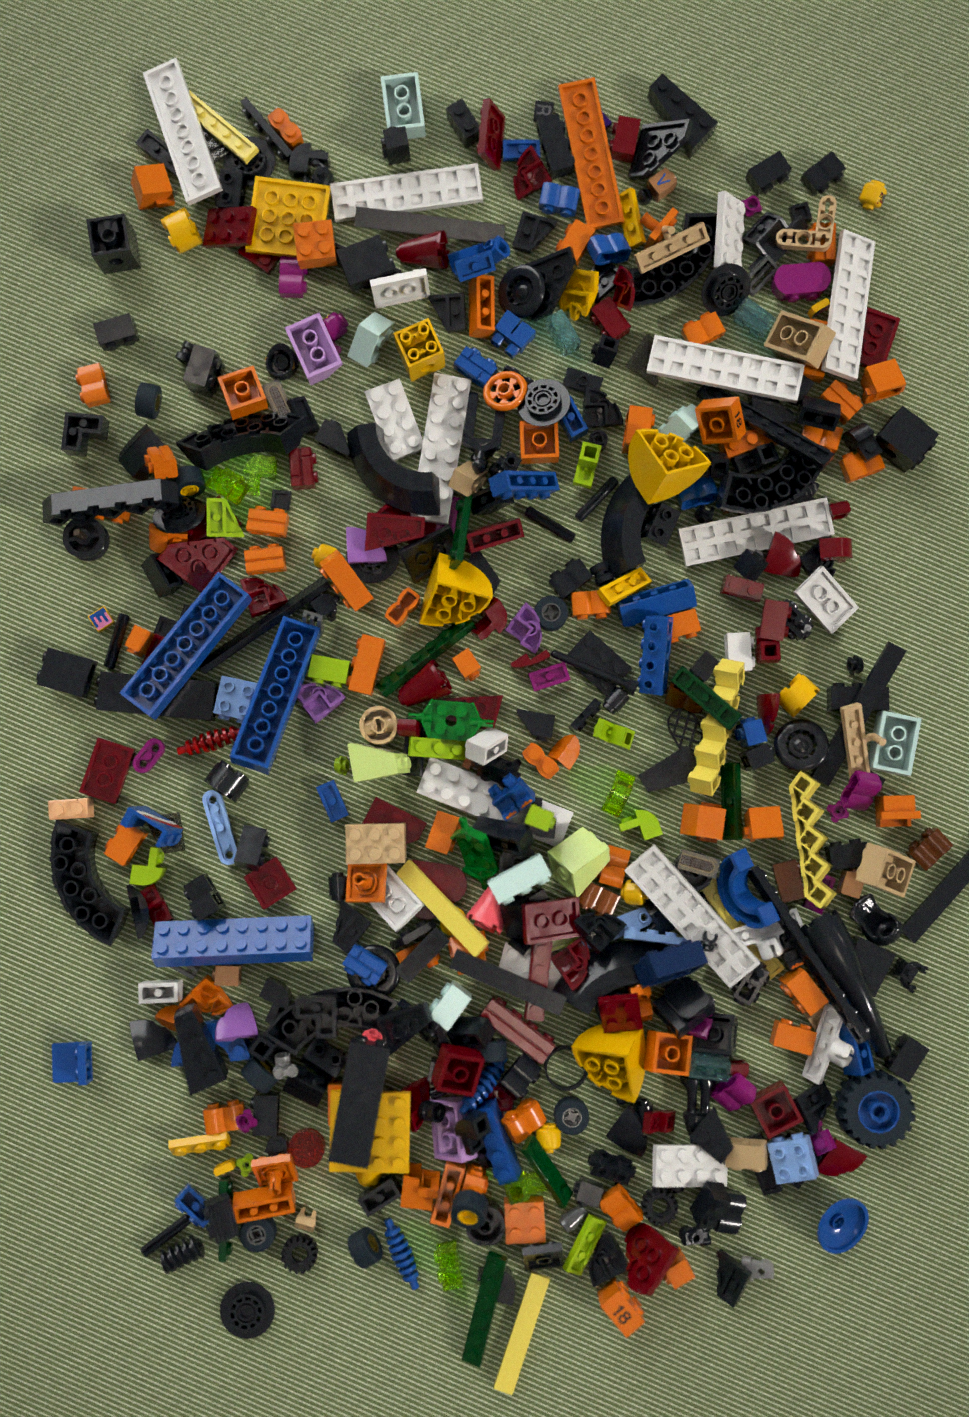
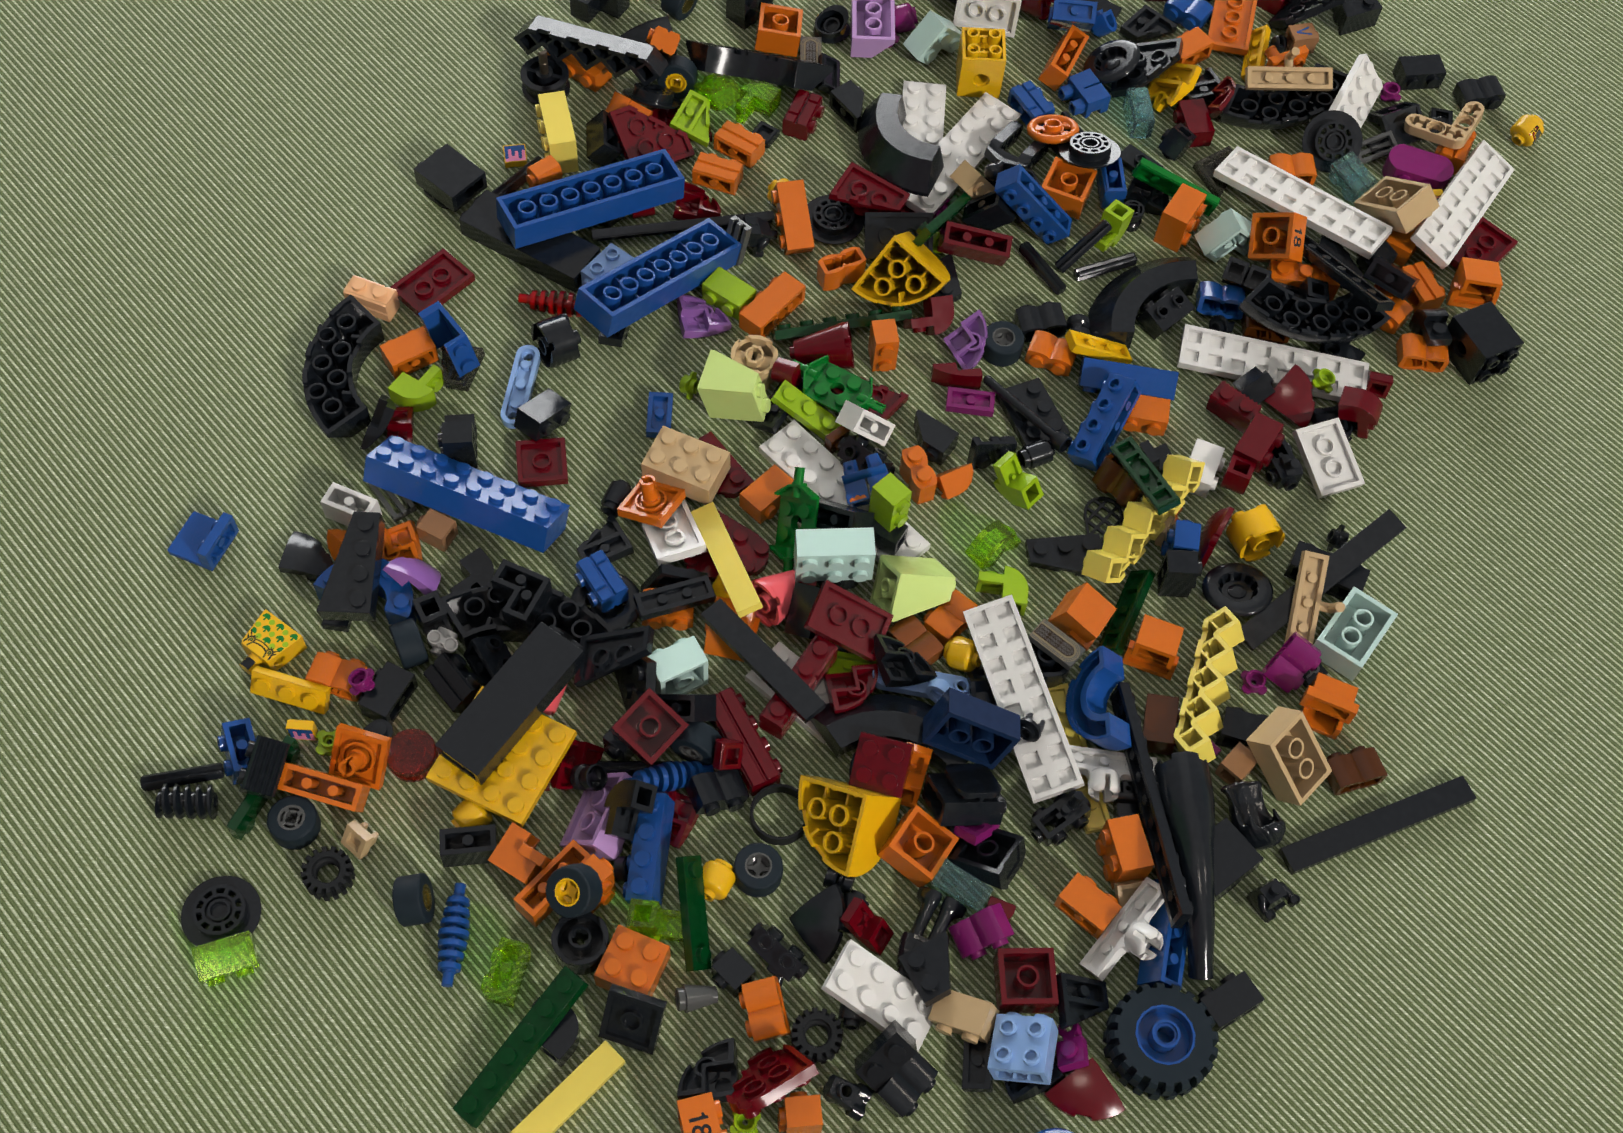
camera: 20 degrees right, 25 degrees down
(124, 589) = (557, 130): none -> light yellow brick
(148, 755) = (485, 289): magenta plate -> none
(166, 1117) = (270, 644): none -> yellow torso
(270, 1342) = (225, 958): none -> clear neon green brick
(356, 548) = (818, 200): medium lavender brick -> none
(450, 310) = (1029, 53): black wing -> none
(514, 1052) = (727, 754): none -> dark red brick
(518, 945) = (795, 645): black tile -> none
(523, 1120) = (694, 840): orange brick -> none
(574, 494) = (1083, 246): none -> black axle
(584, 1245) = (693, 1036): lime plate -> none
(609, 248) = (1220, 63): blue brick -> none
(621, 400) = (1169, 182): none -> green tile
(663, 464) = (1195, 246): yellow brick -> none
(802, 530) = (1323, 379): none -> lime plate

